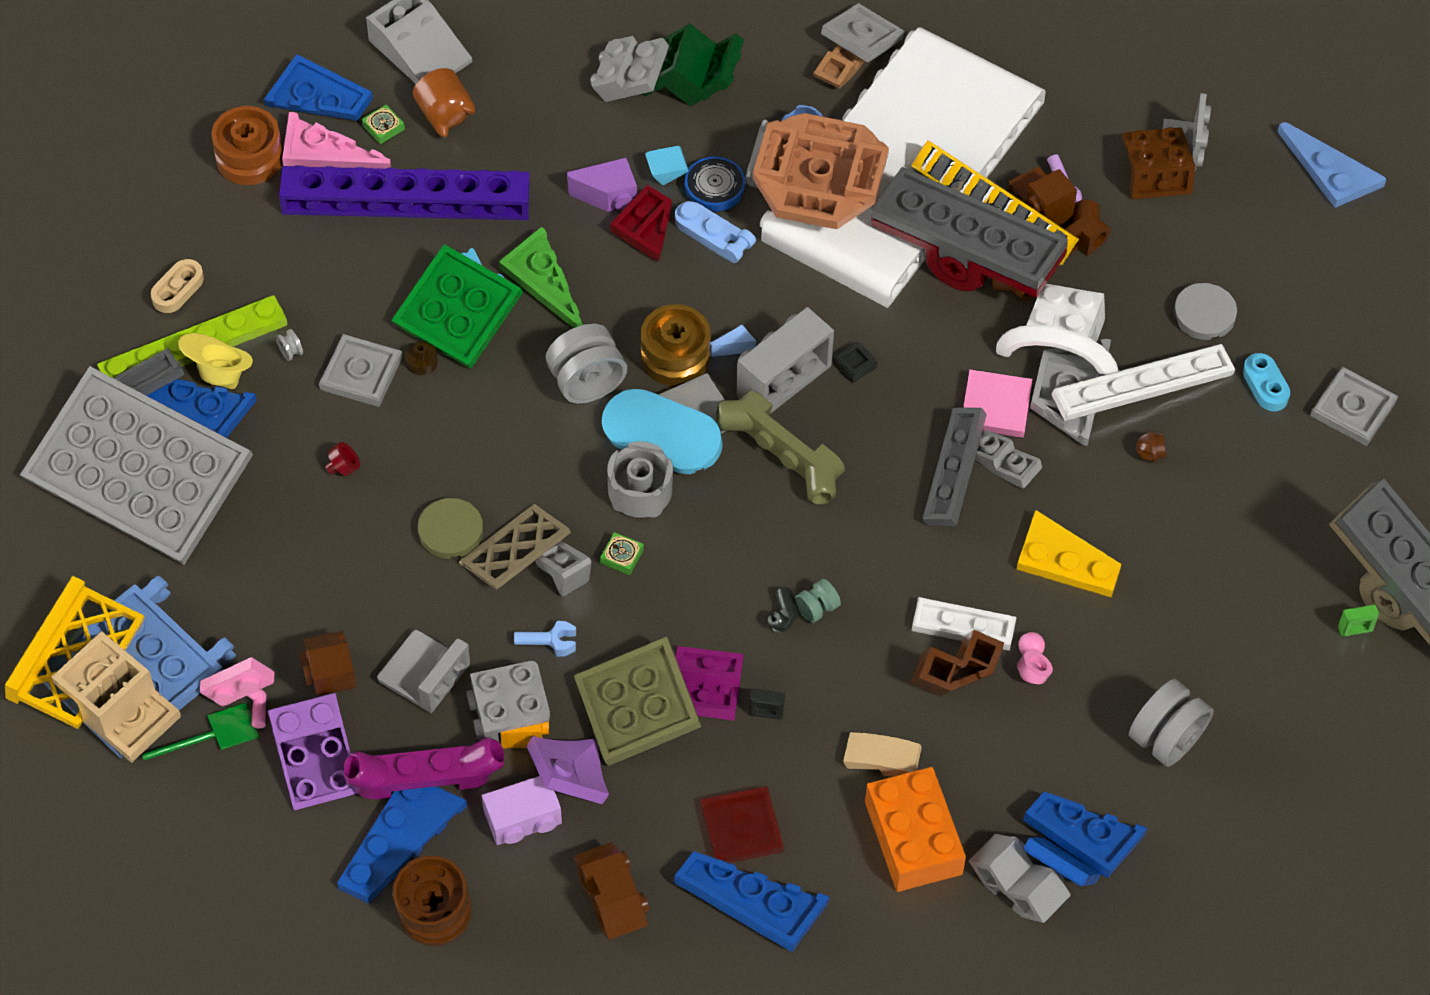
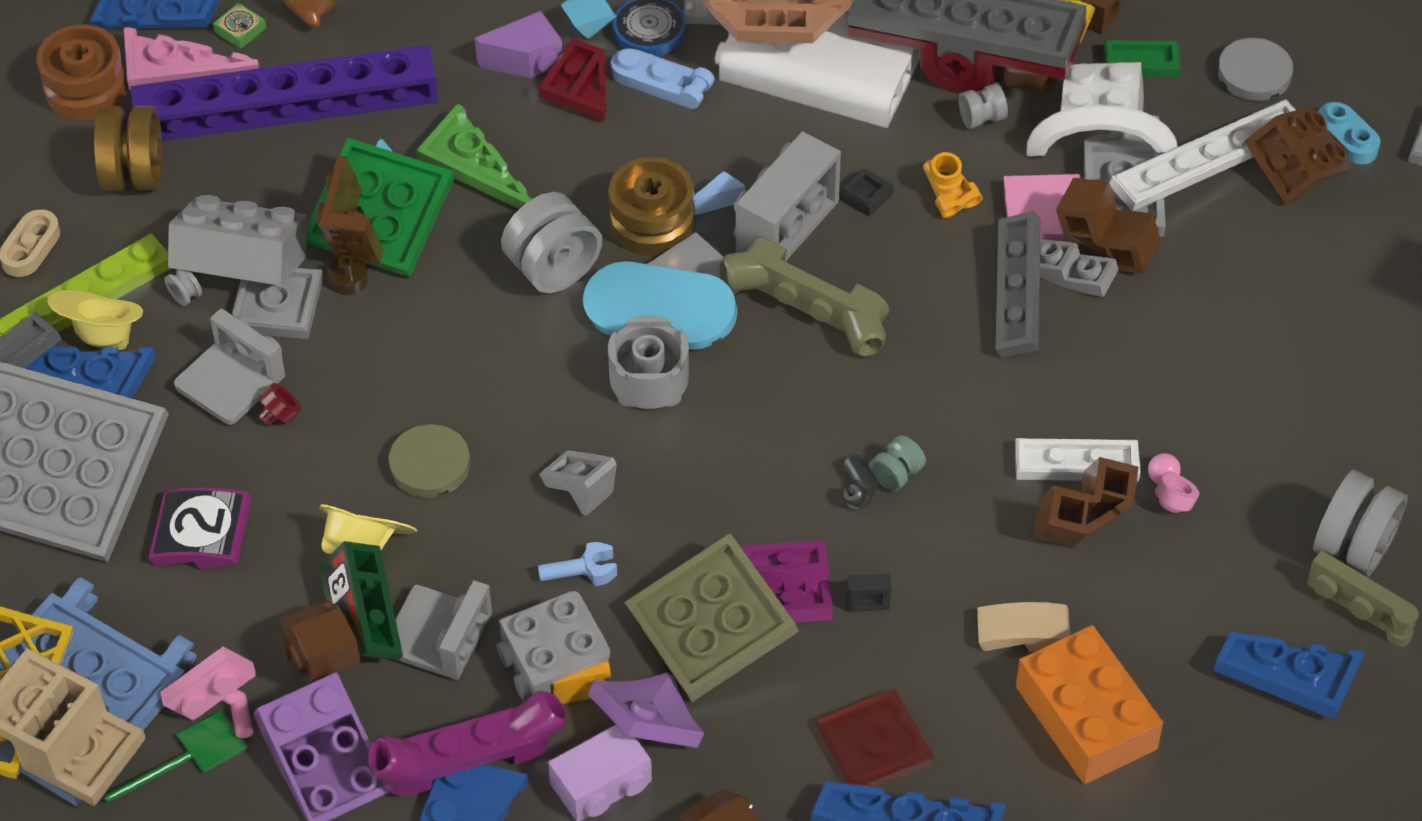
camera: 10 degrees left, 5 degrees down
(260, 550) = (200, 527): none -> slope
(269, 220) = (128, 148): none -> pearl gold wheel
(312, 424) = (233, 370): none -> light grey bracket
(338, 316) = (237, 240): none -> light grey brick
(369, 636) = (358, 584): none -> dark green slope
(377, 583) = (356, 528): none -> light yellow piece
(419, 313) = (342, 226): none -> reddish brown bracket
(514, 565) = (520, 488): dark tan window -> none
(622, 553) = (646, 452): tile -> none
(925, 375) = (950, 185): none -> light orange plate
(968, 304) = (983, 106): none -> light grey wheel
(1008, 869) = (1213, 730): light grey brick -> none
(1029, 420) = (1091, 218): none -> reddish brown brick
(1061, 861) = (1278, 707): blue tile -> none
(1066, 558) = (1176, 365): yellow wing -> none
(1114, 284) = (1156, 57): none -> green tile
(1151, 446) = (1240, 223): reddish brown plate -> none
(1158, 784) = (1363, 598): none -> olive plate
(1216, 393) = (1297, 152): none -> reddish brown bracket

